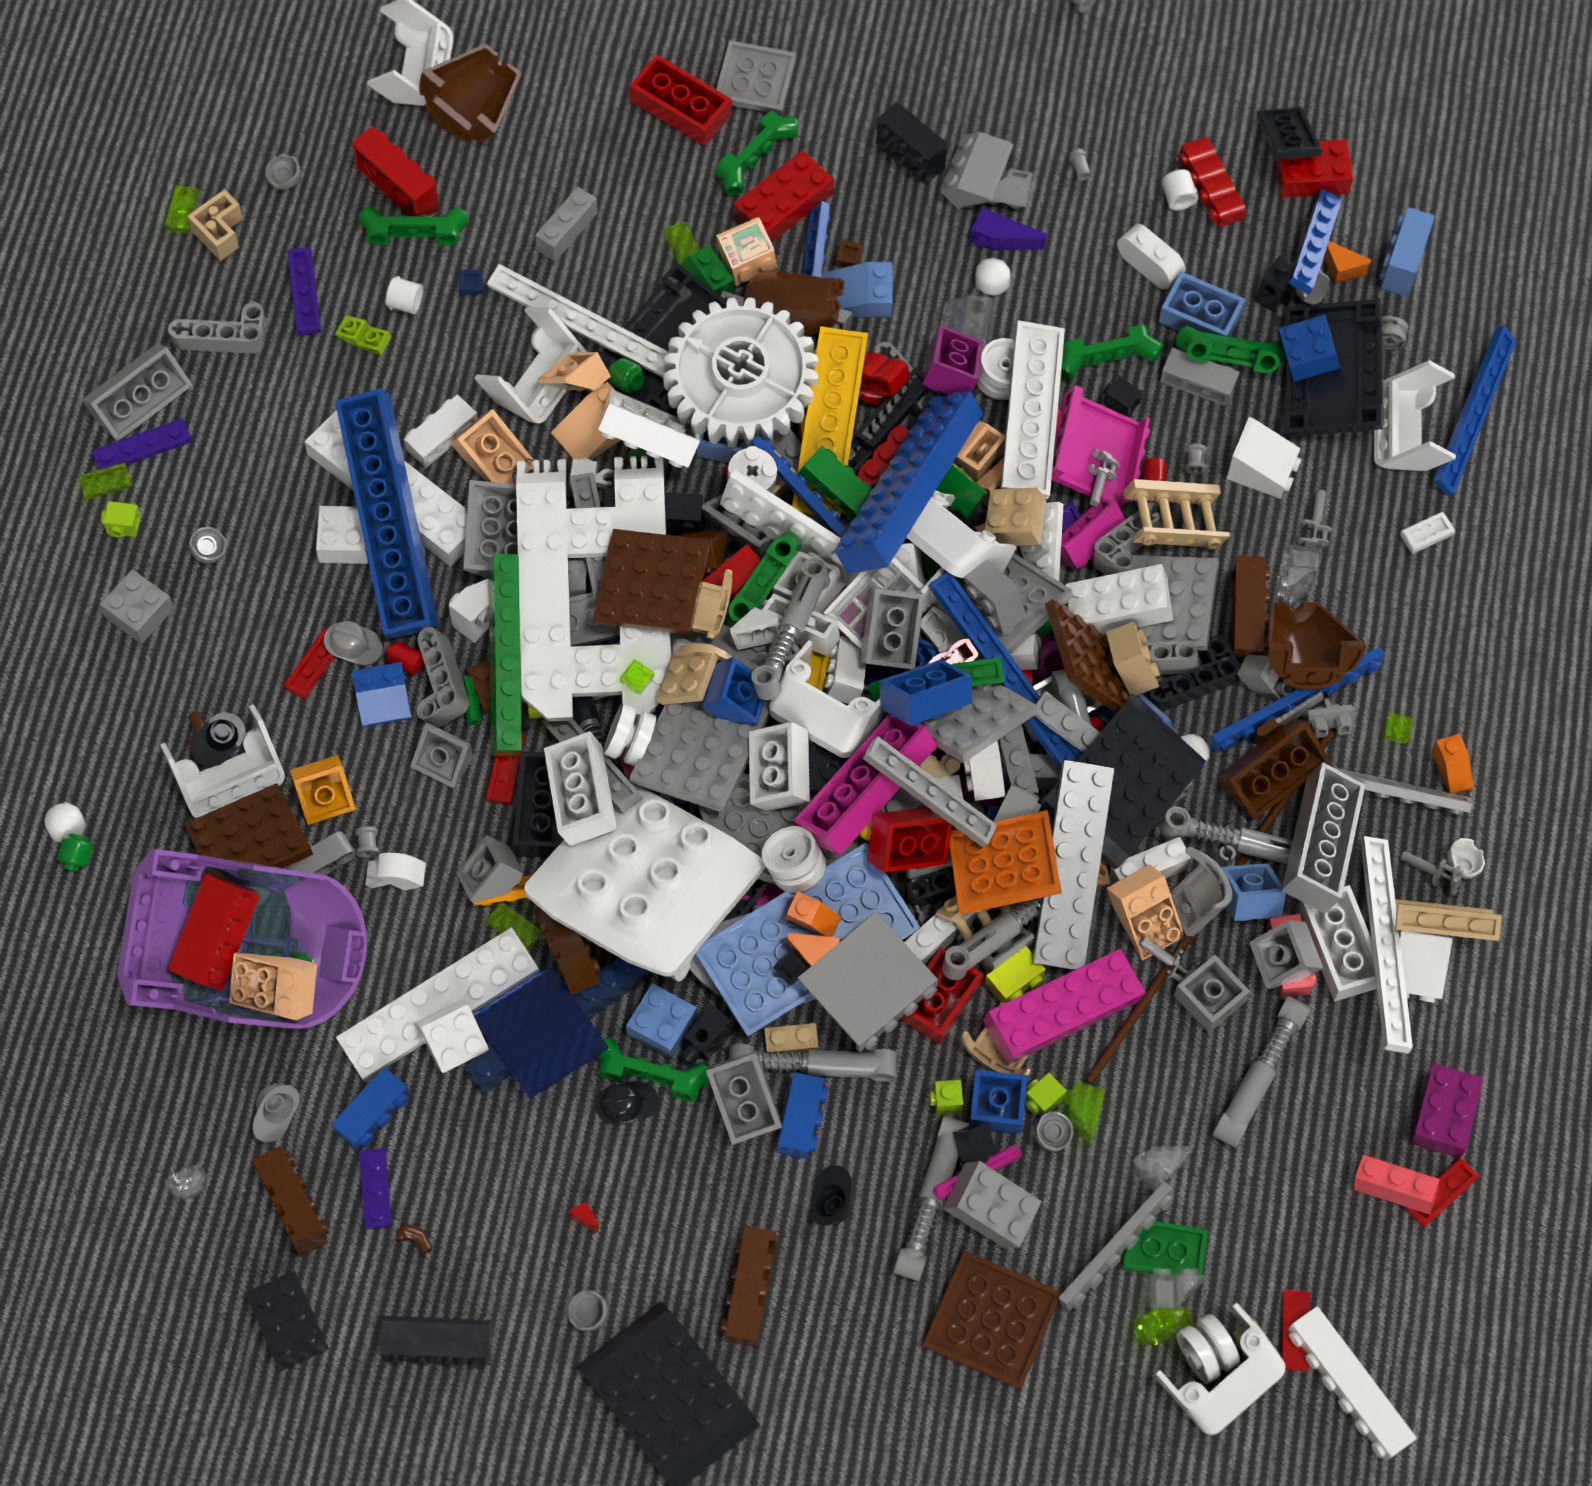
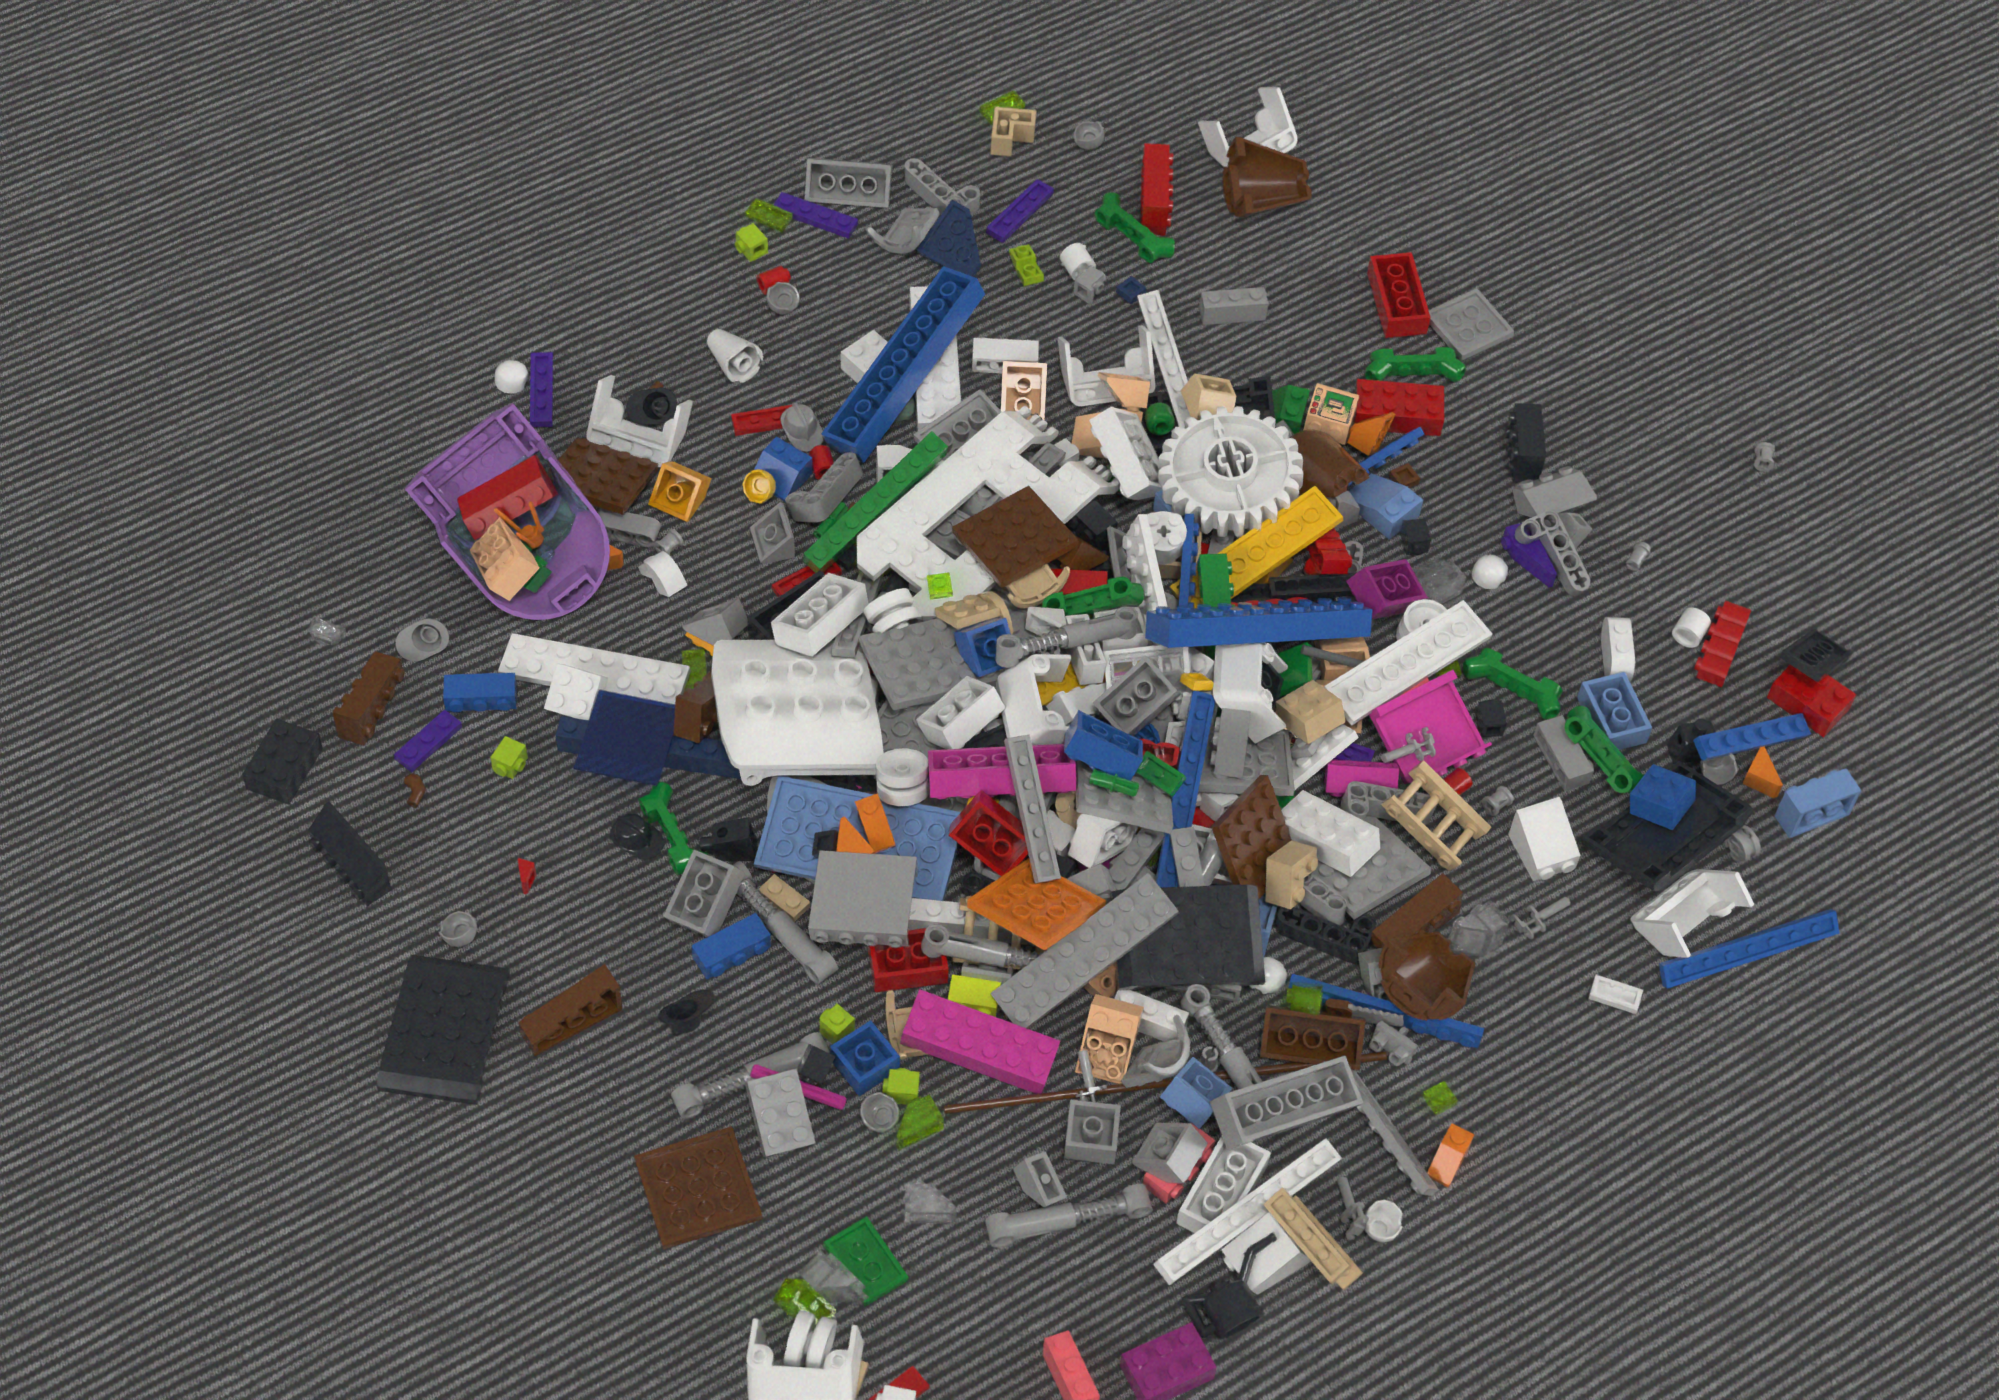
camera: 45 degrees right, 10 degrees down
(75, 852) = (495, 395): green head -> none
(104, 810) = (541, 389): none -> dark purple plate
(136, 606) = (699, 295): light grey brick -> none
(178, 536) = (771, 277): none -> red brick
(227, 631) = (735, 355): none -> white cone
(238, 391) = (907, 230): none -> light grey piece
(264, 942) = (529, 534): none -> orange plant
(288, 369) = (953, 241): none -> dark blue plate
(383, 725) = (759, 486): none -> yellow hair
(435, 307) = (1089, 284): none -> light grey brick
(459, 1139) = (509, 758): none -> lime brick
(654, 325) = (1208, 394): none -> tan slope
(661, 1021) = (712, 803): medium blue brick -> none
(681, 241) = (1301, 375): clear neon green plate -> none
(790, 240) = (1369, 433): none -> orange slope
(912, 298) = (1415, 536): none -> black brick
(924, 573) = (1196, 681): none -> yellow tile
(964, 713) = (1114, 783): none -> green axle
(979, 456) = (1330, 656): none -> dark grey bar
(1060, 224) = (1556, 554): none -> light grey beam
(1110, 1254) = (831, 1221): light grey plate -> none
(1218, 1066) = (1040, 1180): none -> light grey slope
(1247, 744) = (1305, 997): none -> clear neon green slope
(1437, 1024) = (1229, 1303): none -> black piece

